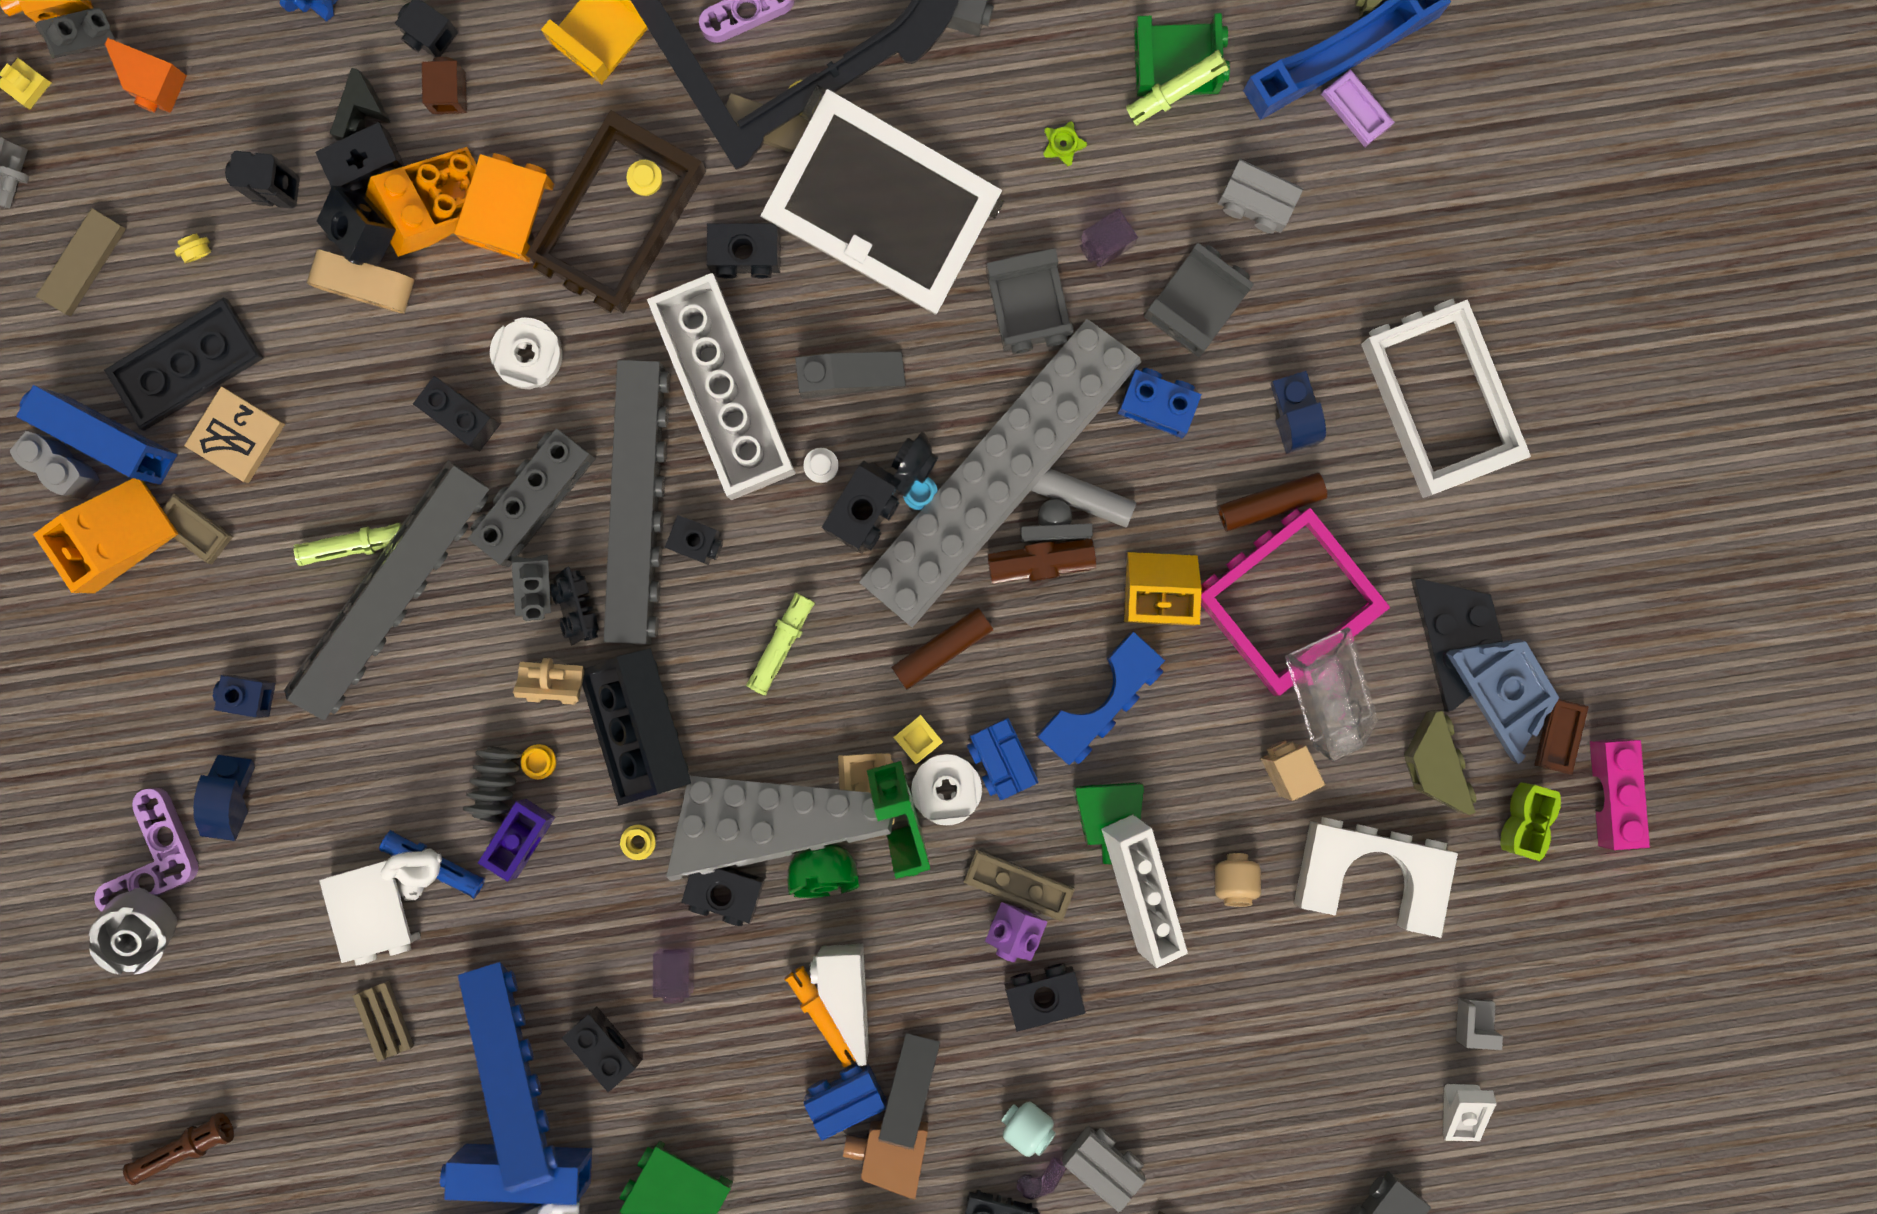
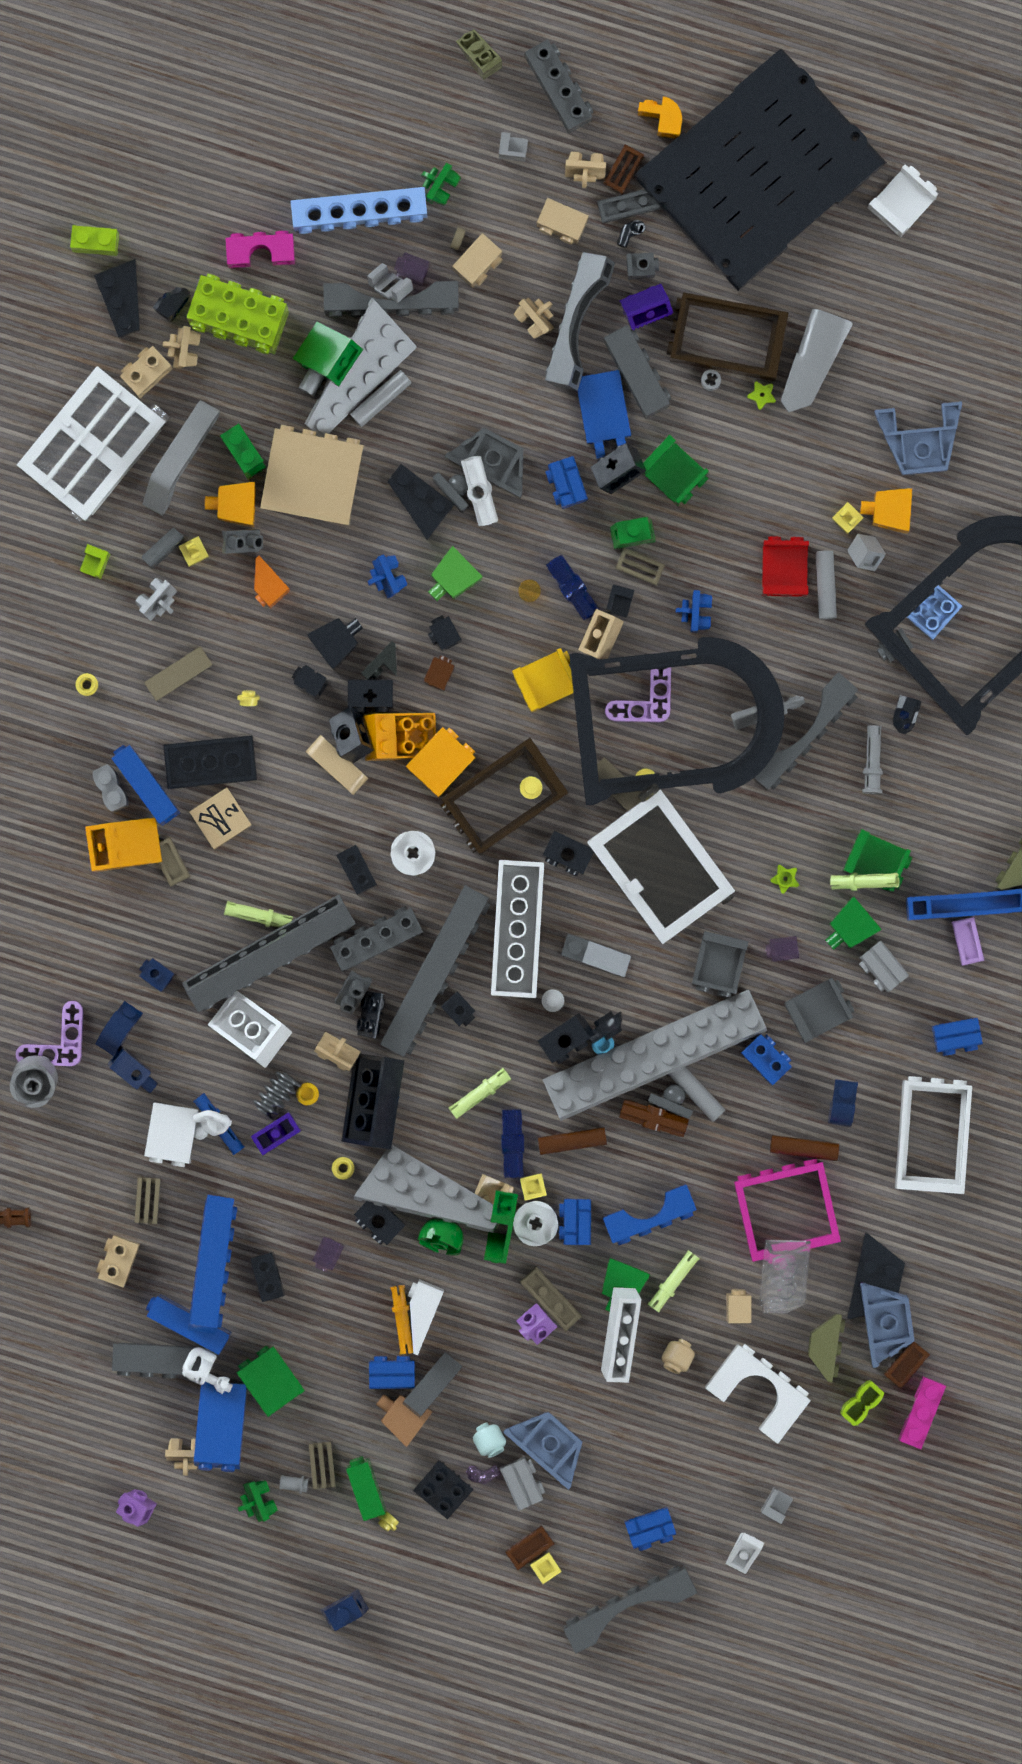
camera: 25 degrees right, 0 degrees up
(252, 848) = (124, 1063): none -> dark blue torso
(277, 109) = (335, 640): none -> black torso
(379, 1128) = (118, 1260): none -> tan brick
(413, 709) = (250, 1028): none -> white slope
(860, 692) = (512, 1143): none -> clear blue piece
(1063, 1005) = (545, 1378): black brick -> none
(1115, 1094) = (549, 1445): none -> sand blue wing
(1162, 589) = (715, 1167): yellow slope -> none
(1179, 777) = (673, 1281): none -> yellowish green pin
(1188, 160) = (851, 925): none -> green torso
(1317, 1144) = (650, 1528): none -> blue brick
(1409, 242) = (957, 1035): none -> blue brick

